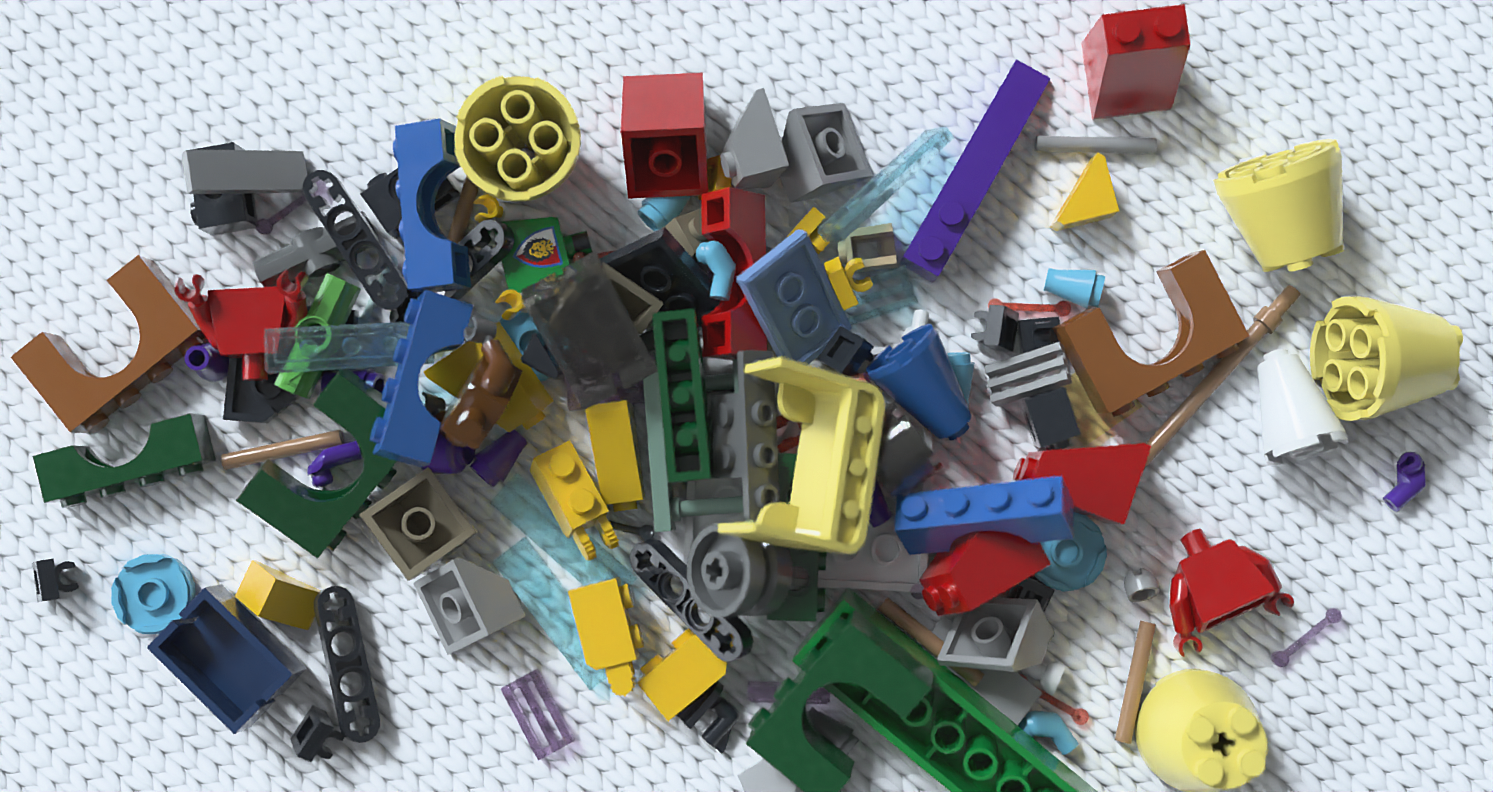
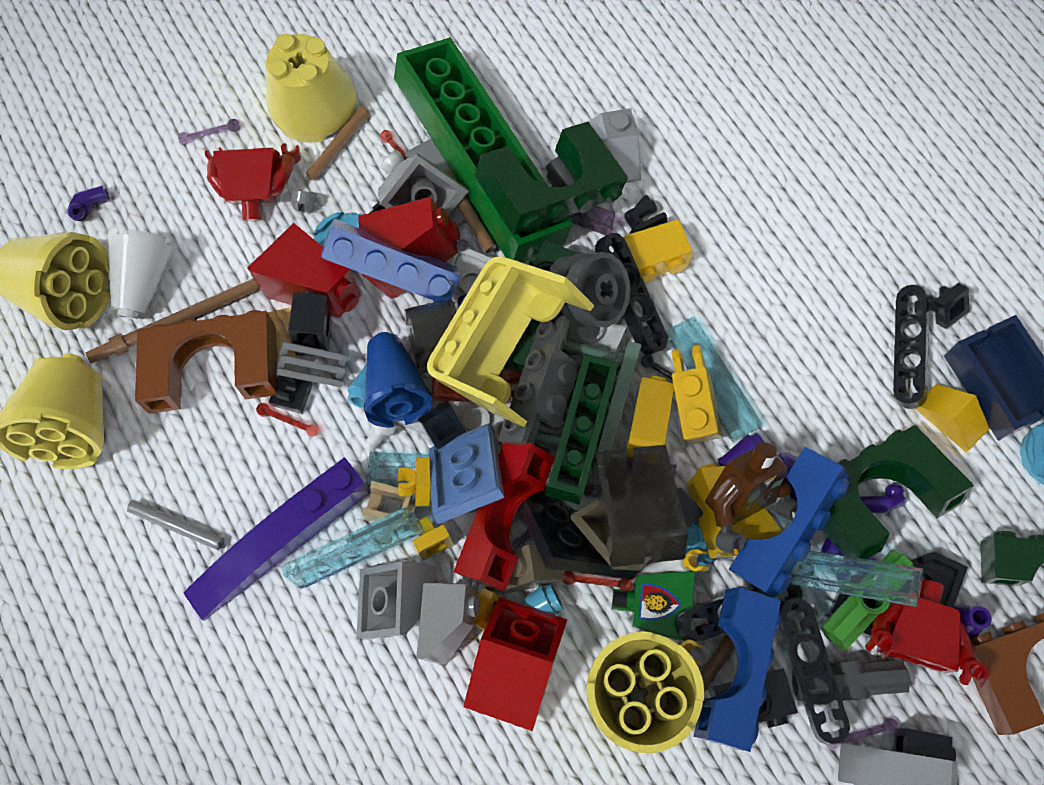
camera: 160 degrees left, 15 degrees down
(282, 449) = (927, 528): medium nougat bar -> none
(418, 524) = (828, 420): dark tan slope -> none
(467, 603) = (802, 351): light grey slope -> none
(548, 603) = (735, 329): clear light blue tile -> none
(552, 707) = (777, 289): clear purple tile -> none
(607, 631) = (702, 295): yellow hinge -> none
(722, 266) = (512, 526): medium azure arm -> none
(1000, 328) = (316, 407): tile -> none
(1049, 725) = (408, 134): medium azure arm -> none
(1076, 286) = (243, 418): medium azure cone -> none
(1090, 198) = (201, 481): yellow slope -> none
(1135, 60) = (108, 570): red slope -> none

